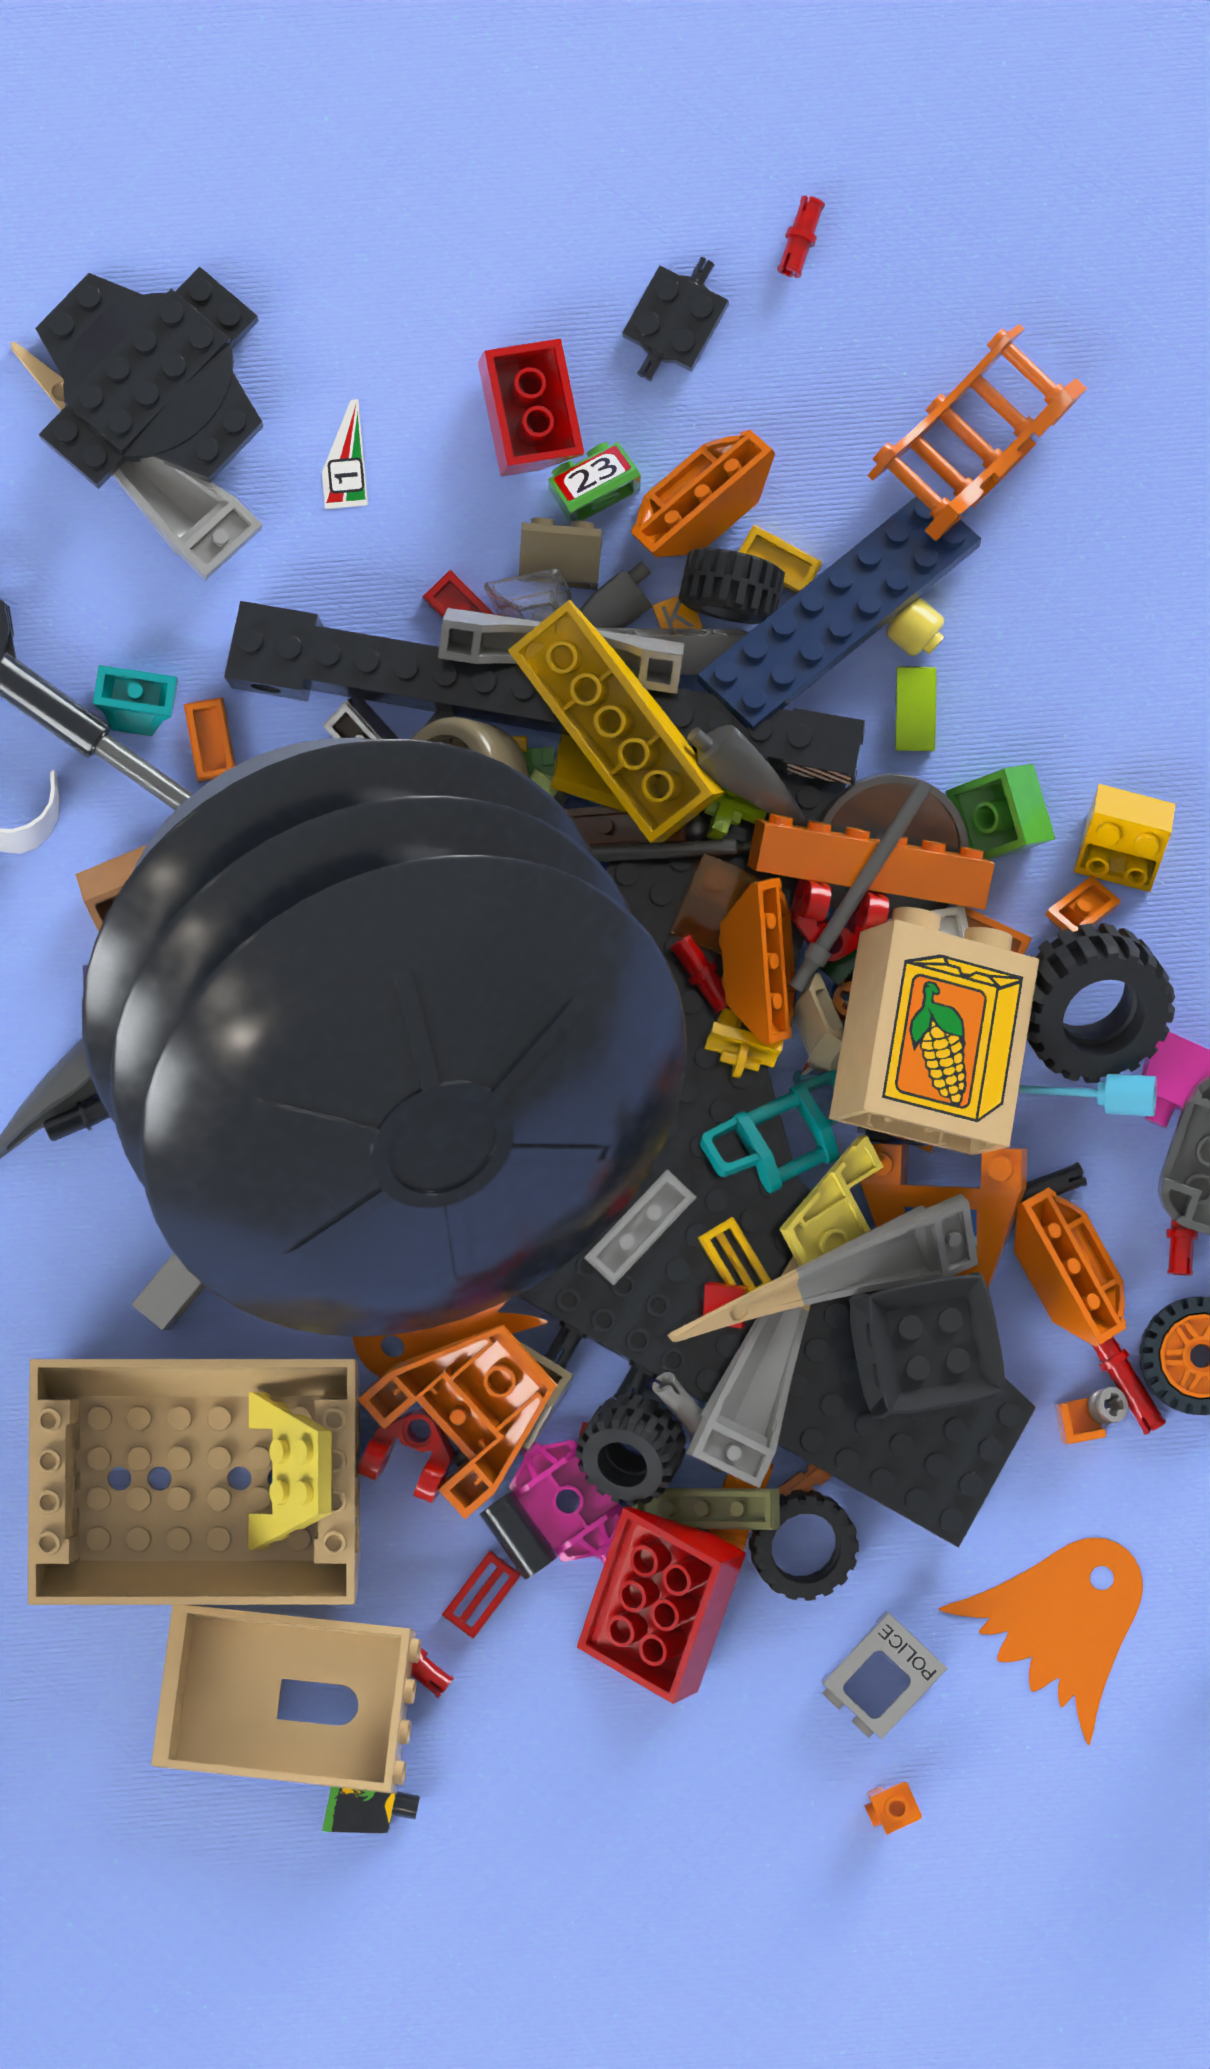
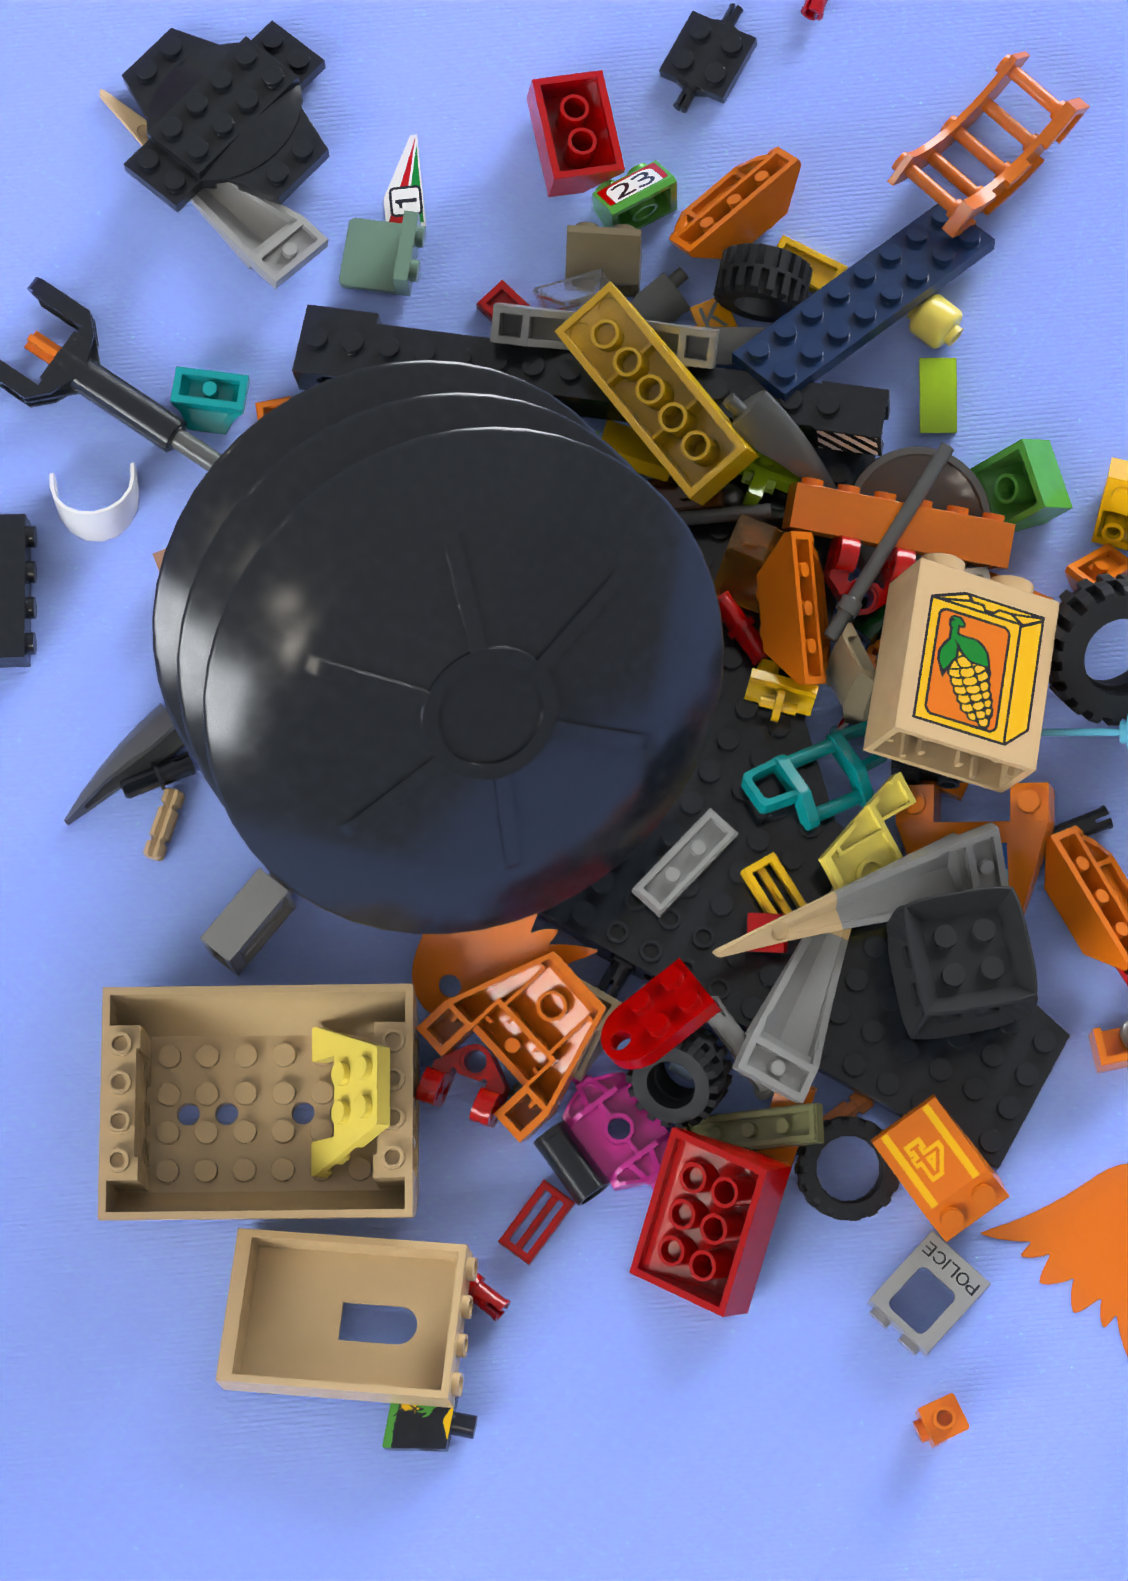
camera: 10 degrees right, 10 degrees down
(90, 1167) = (164, 824): none -> tan axle
(320, 539) = (383, 255): none -> sand green bracket
(610, 1396) = (657, 1017): none -> red plate
(899, 1551) = (940, 1168): none -> orange slope

